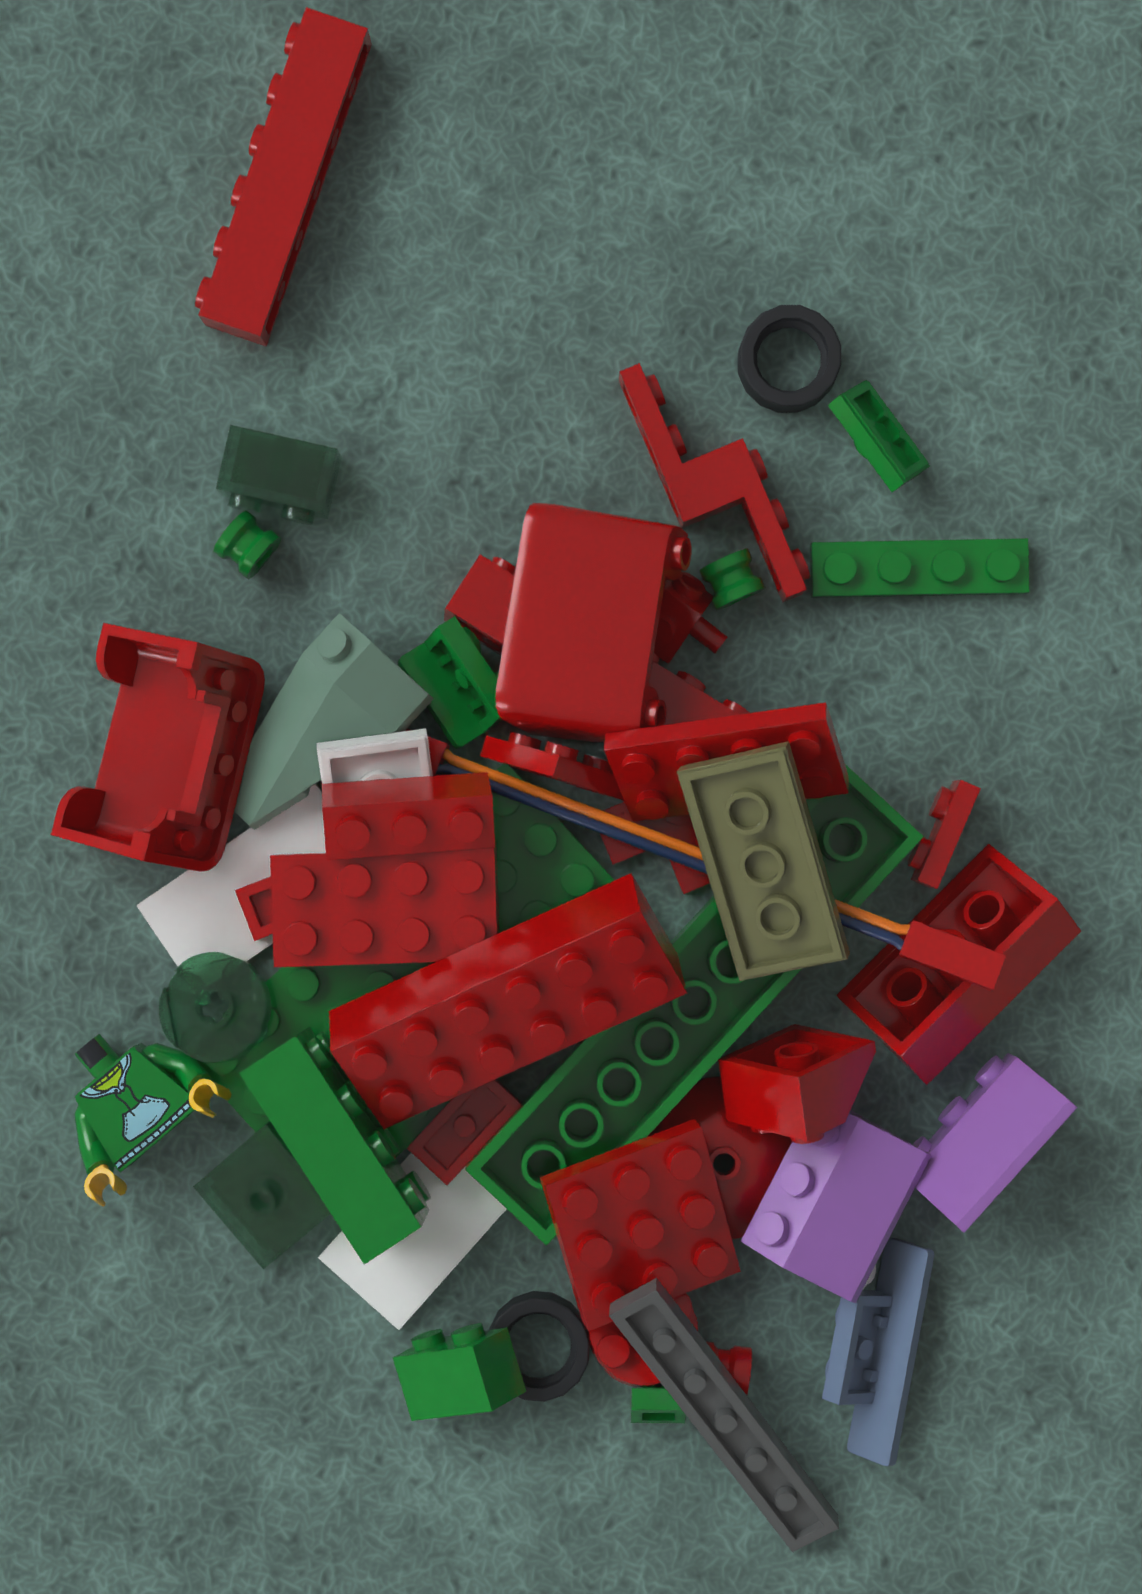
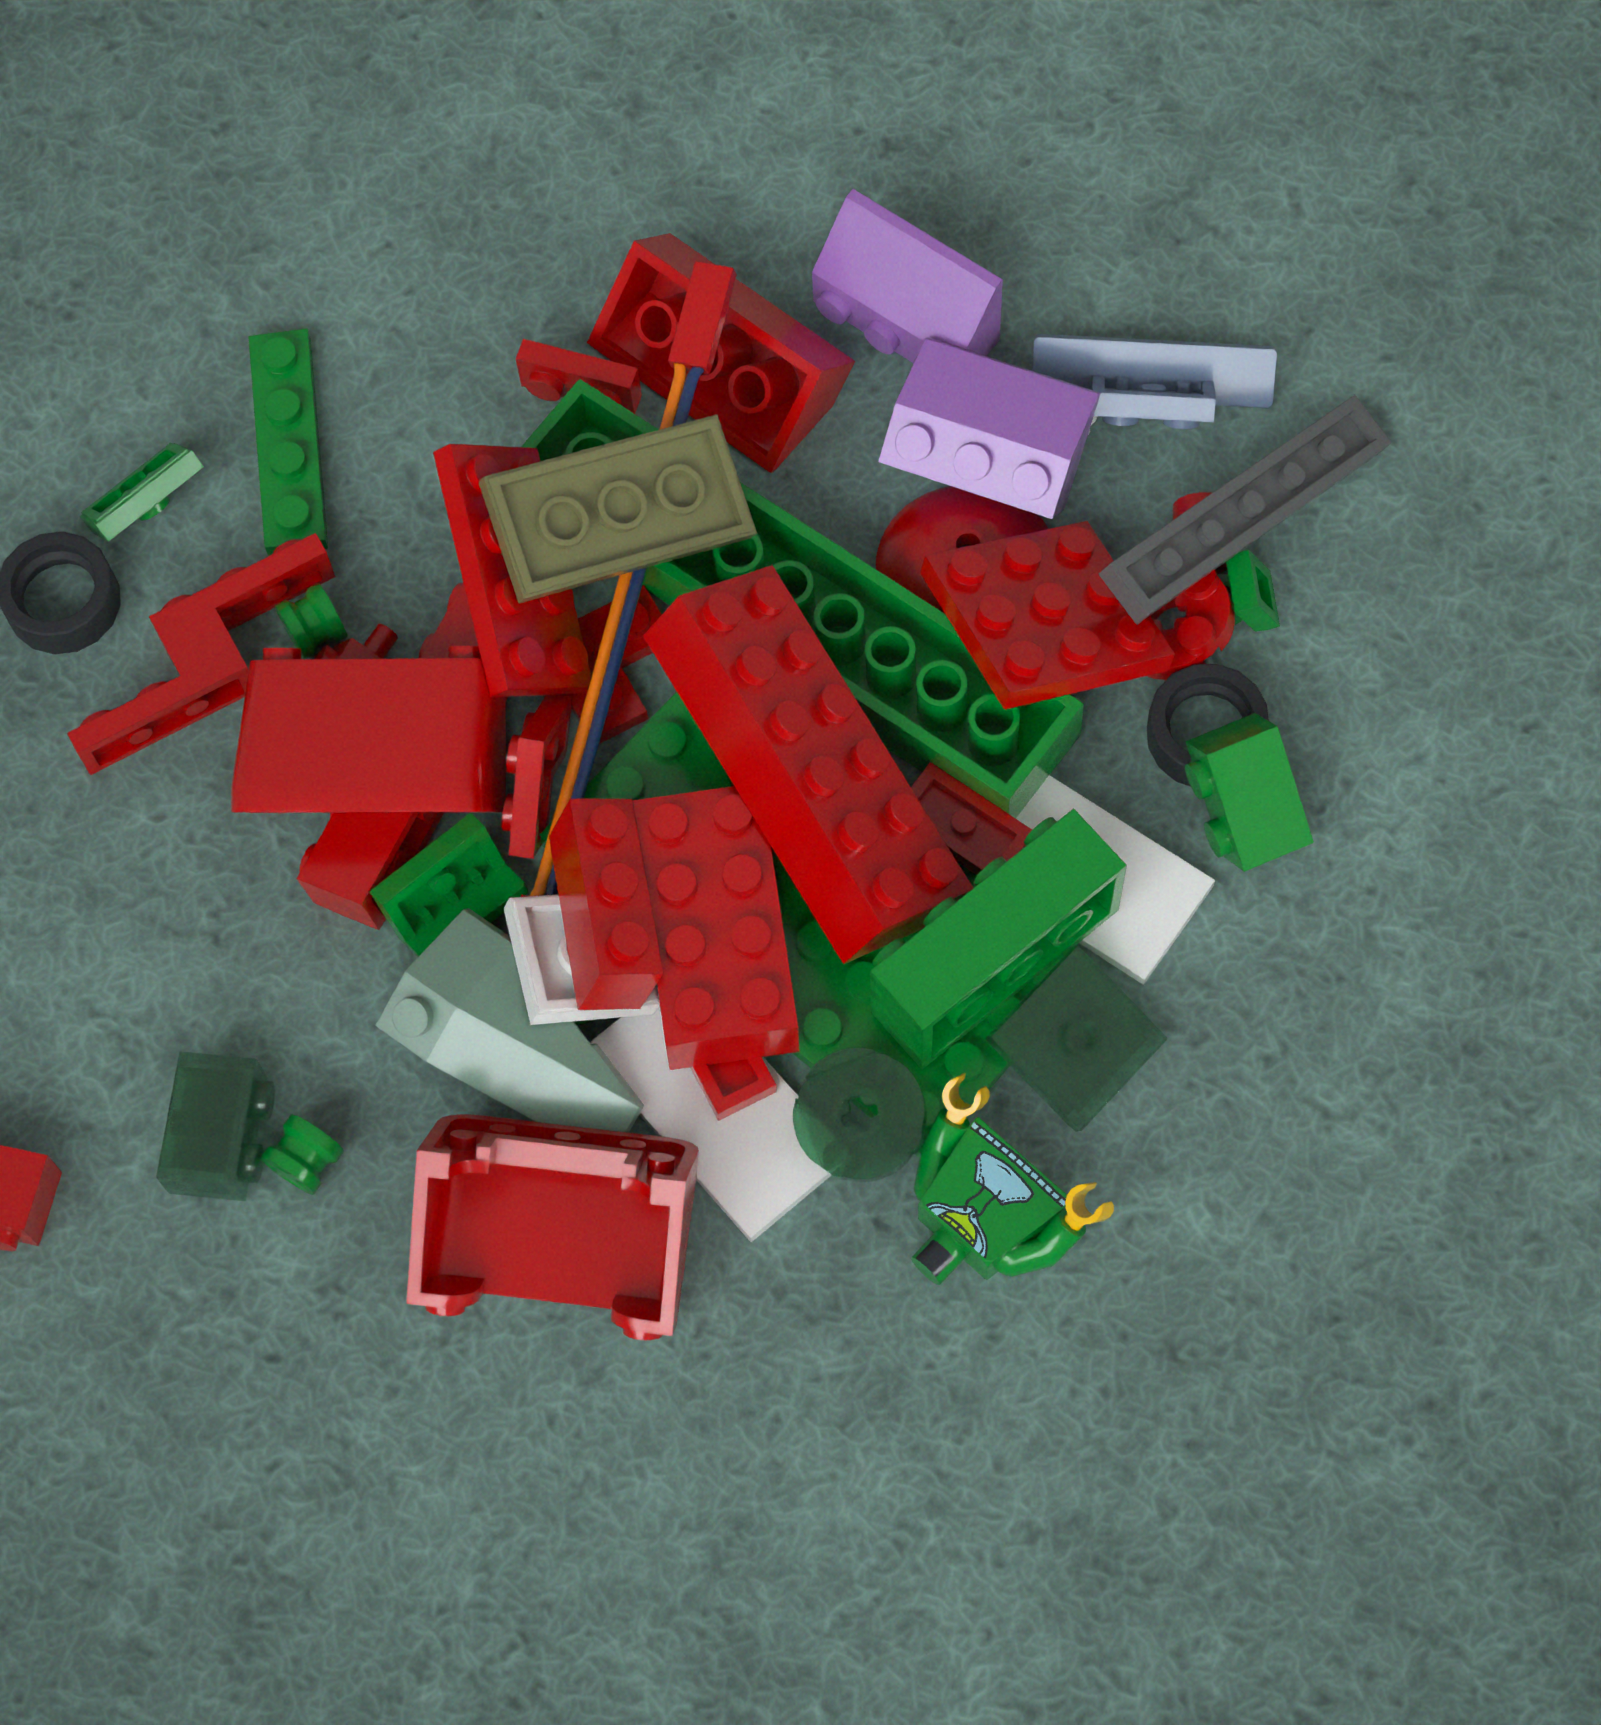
camera: 95 degrees left, 20 degrees down
(795, 1081) = (865, 475): red slope -> none

